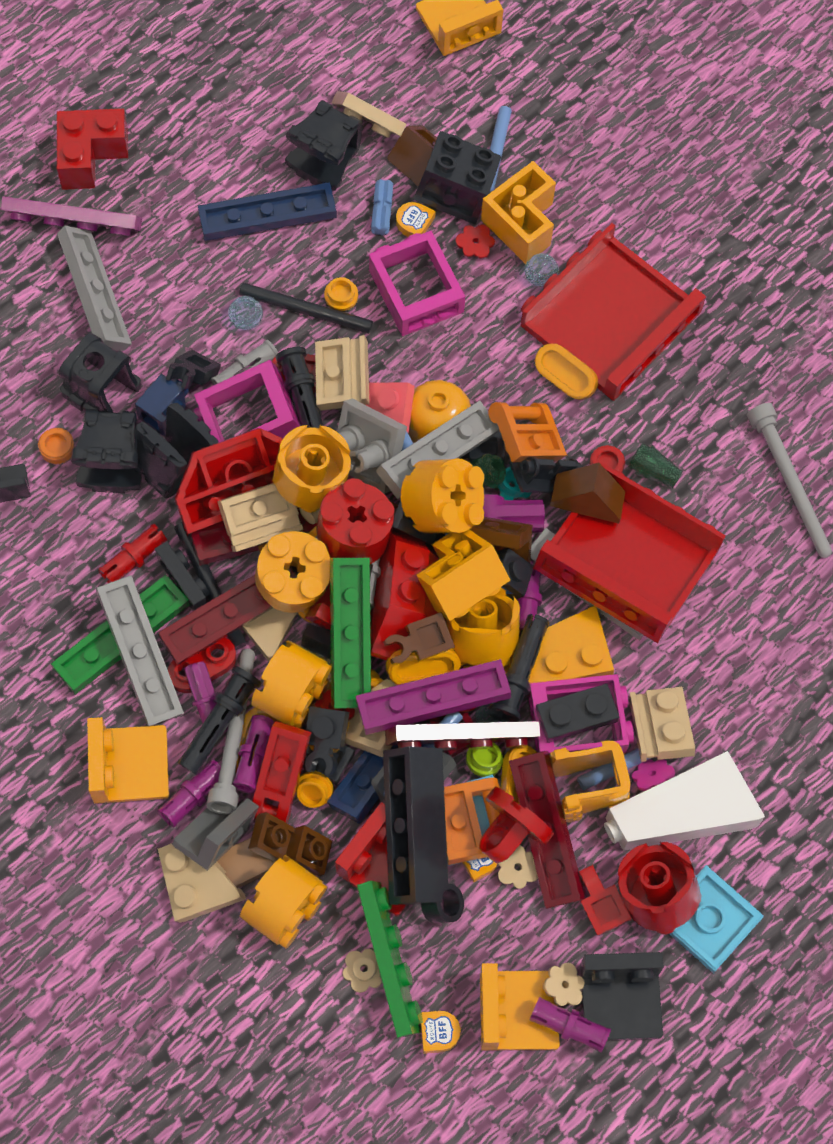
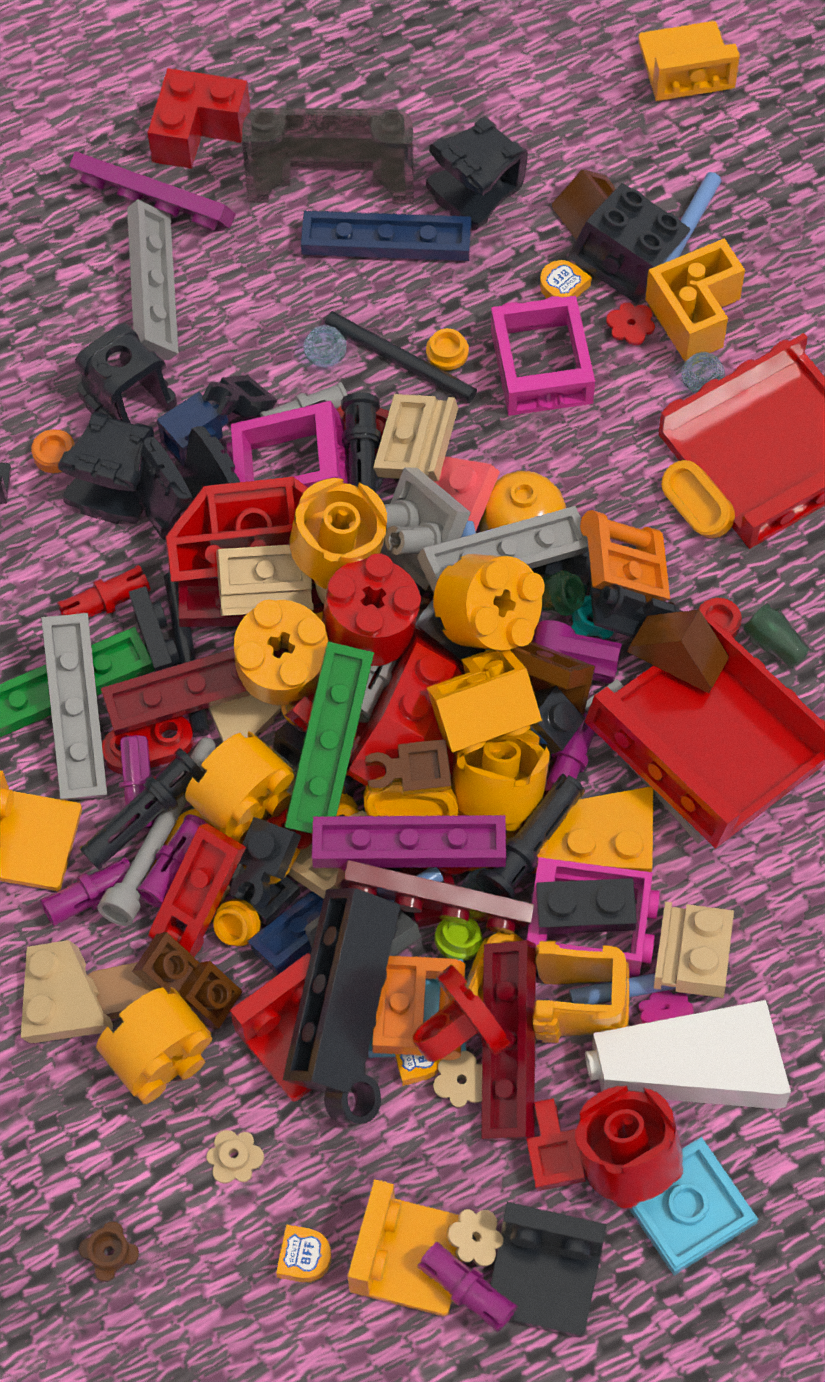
camera: 20 degrees right, 5 degrees down
(207, 143) = (328, 140): none -> clear smoke windscreen
(214, 834) = (99, 944): dark grey panel -> none
(291, 1056) = (109, 1236): none -> reddish brown plate
(382, 122) = (555, 159): tan wing -> none
(382, 207) = (525, 263): medium blue piece -> none
(394, 974) = (265, 1164): green plate -> none

